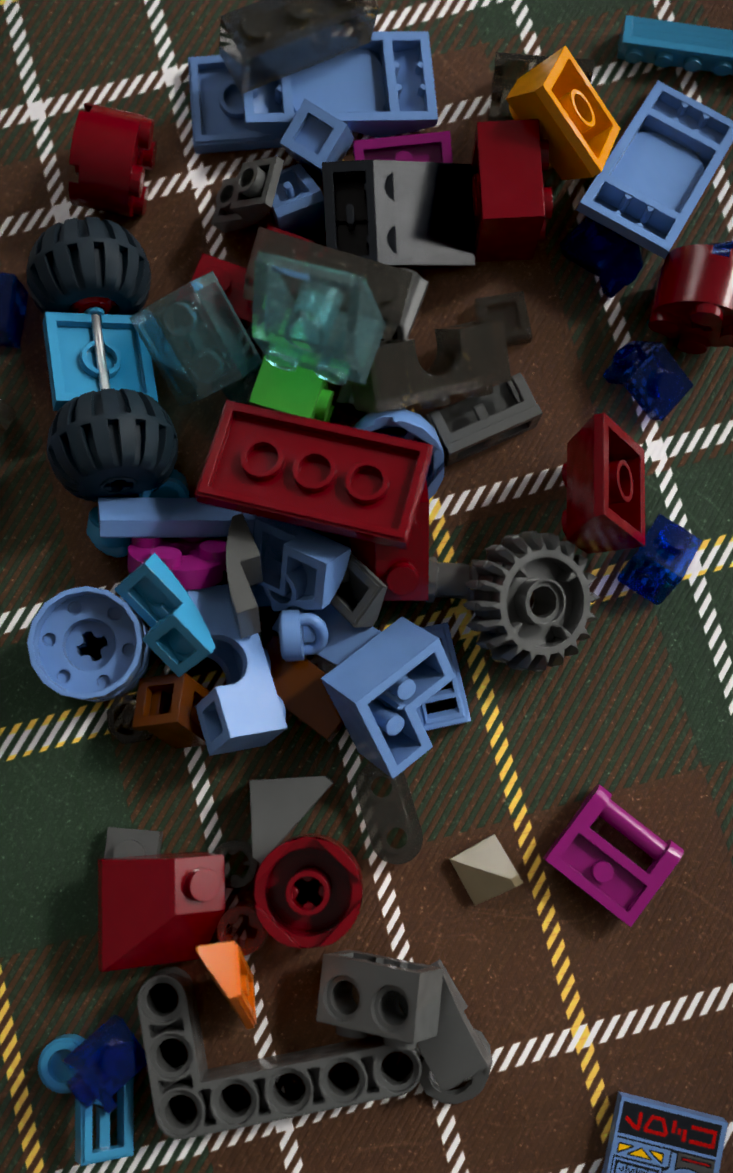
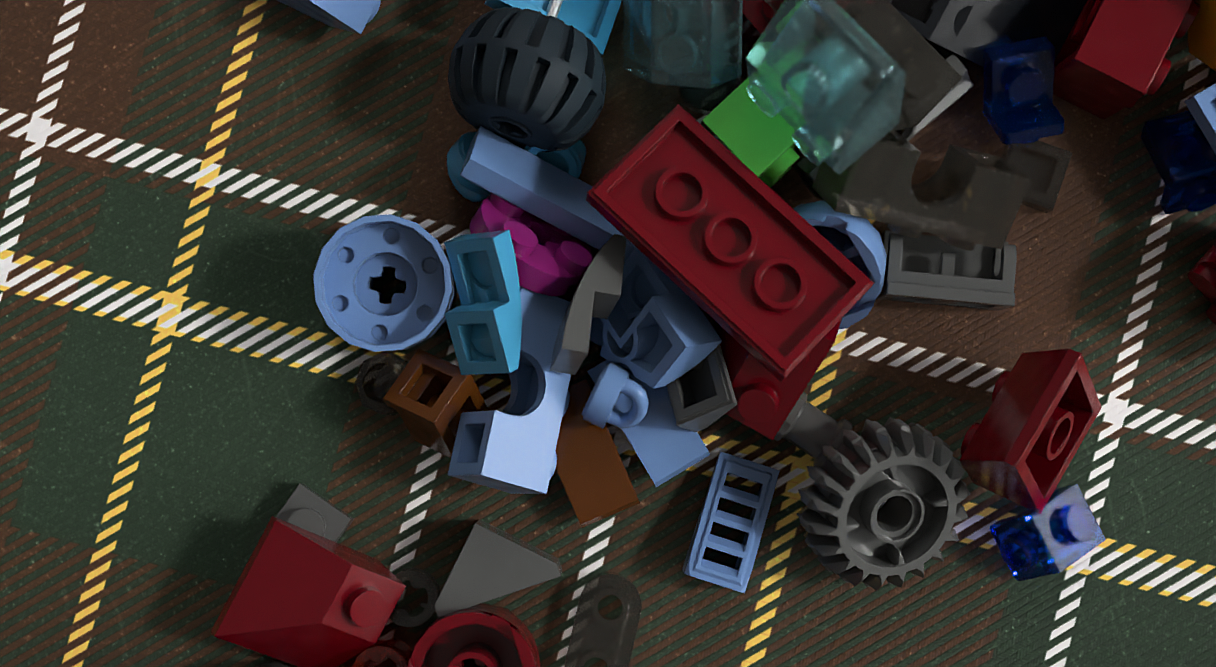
camera: 25 degrees right, 5 degrees up
(383, 687) = (673, 507): medium blue brick -> none
(462, 266) = (1021, 91): none -> clear blue bracket
(649, 377) = (1155, 328): clear blue bracket -> none

